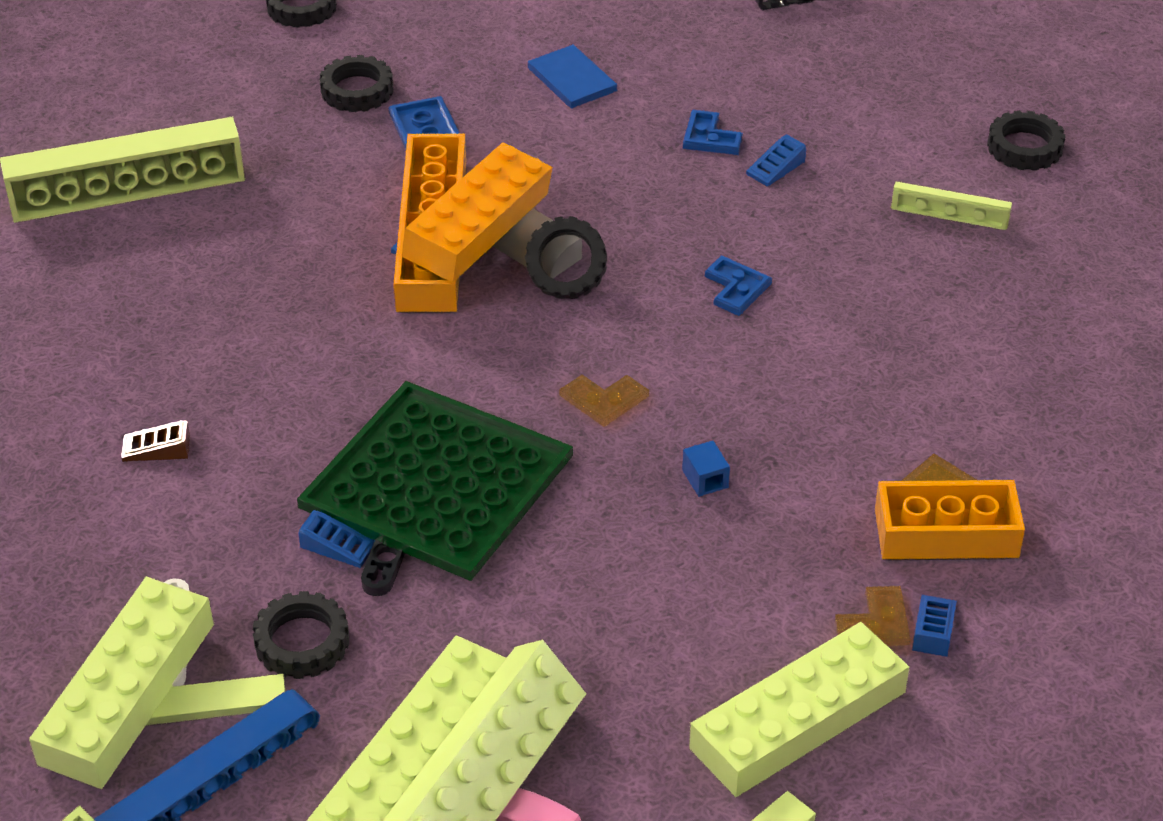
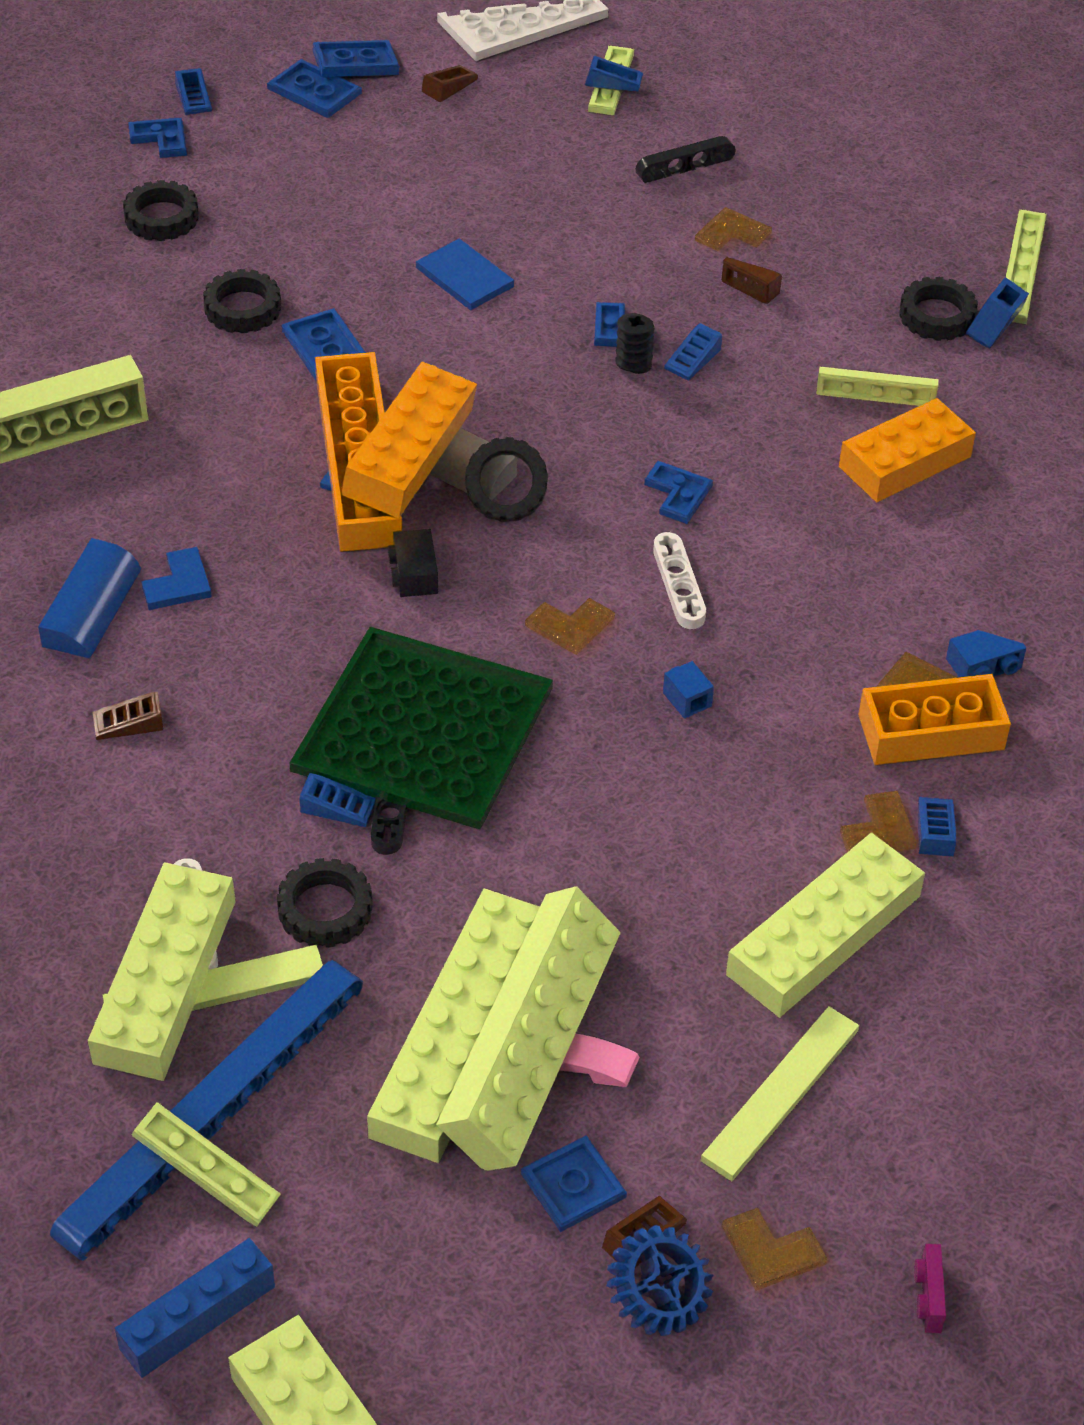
camera: 10 degrees left, 5 degrees up
(146, 332) = (89, 599): none -> blue brick
(242, 328) = (185, 584): none -> blue tile
(462, 327) = (415, 563): none -> black brick
(717, 367) = (680, 580): none -> white beam
(718, 146) = (634, 343): none -> black piece
(837, 51) = (729, 225): none -> clear yellow tile
(862, 102) = (768, 280): none -> reddish brown slope
(969, 265) = (906, 449): none -> light orange brick
(1014, 461) = (984, 654): none -> blue slope
(1083, 147) = (997, 313): none -> blue slope
(1117, 110) = (1025, 255): none -> yellowish green tile

